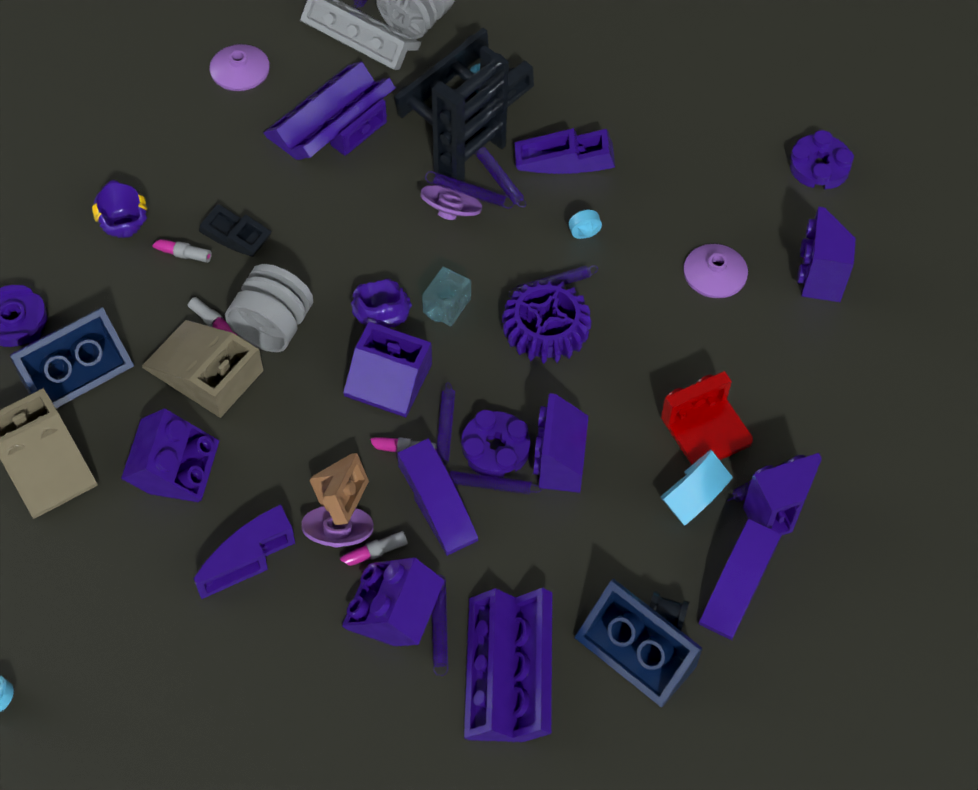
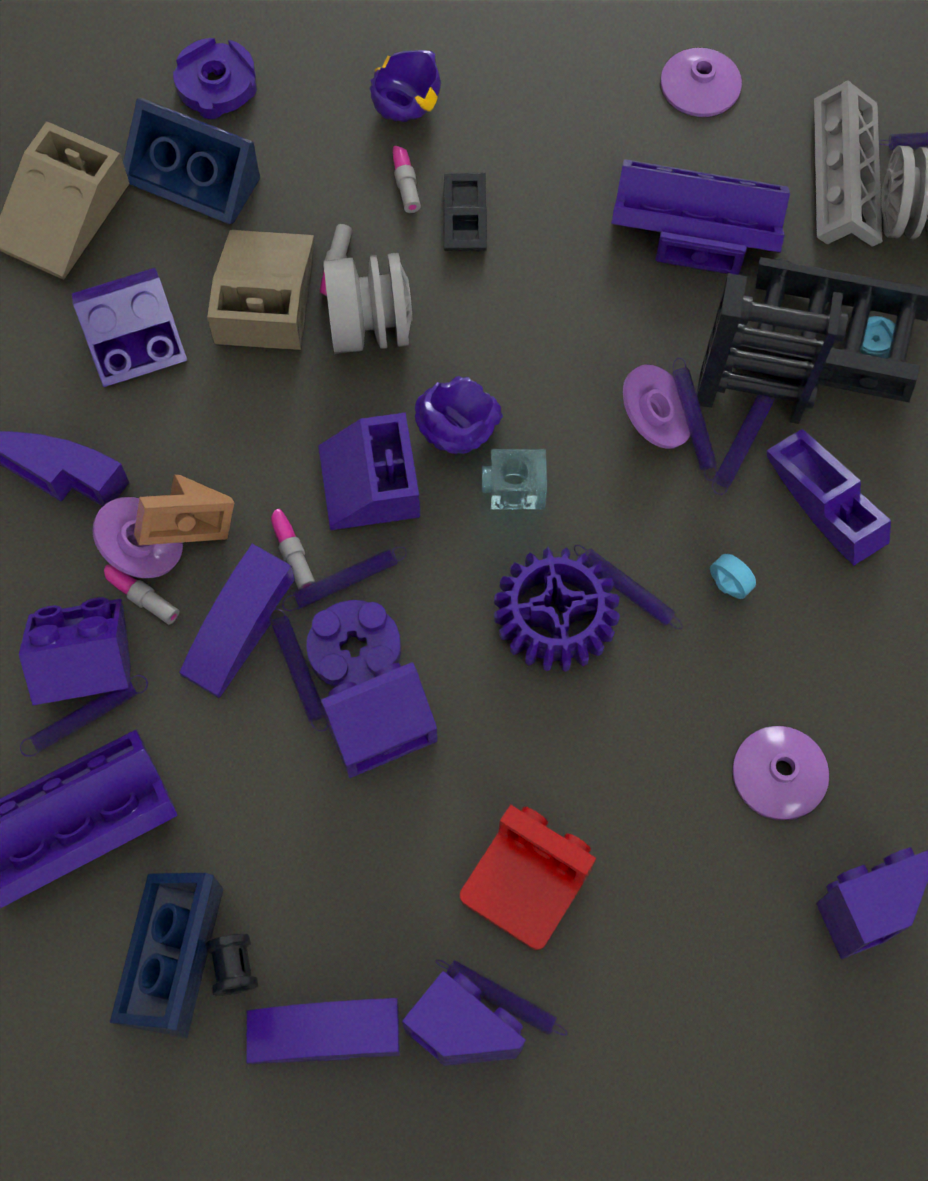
camera: 60 degrees right, 10 degrees up
(697, 488) = (423, 915): medium azure slope -> none

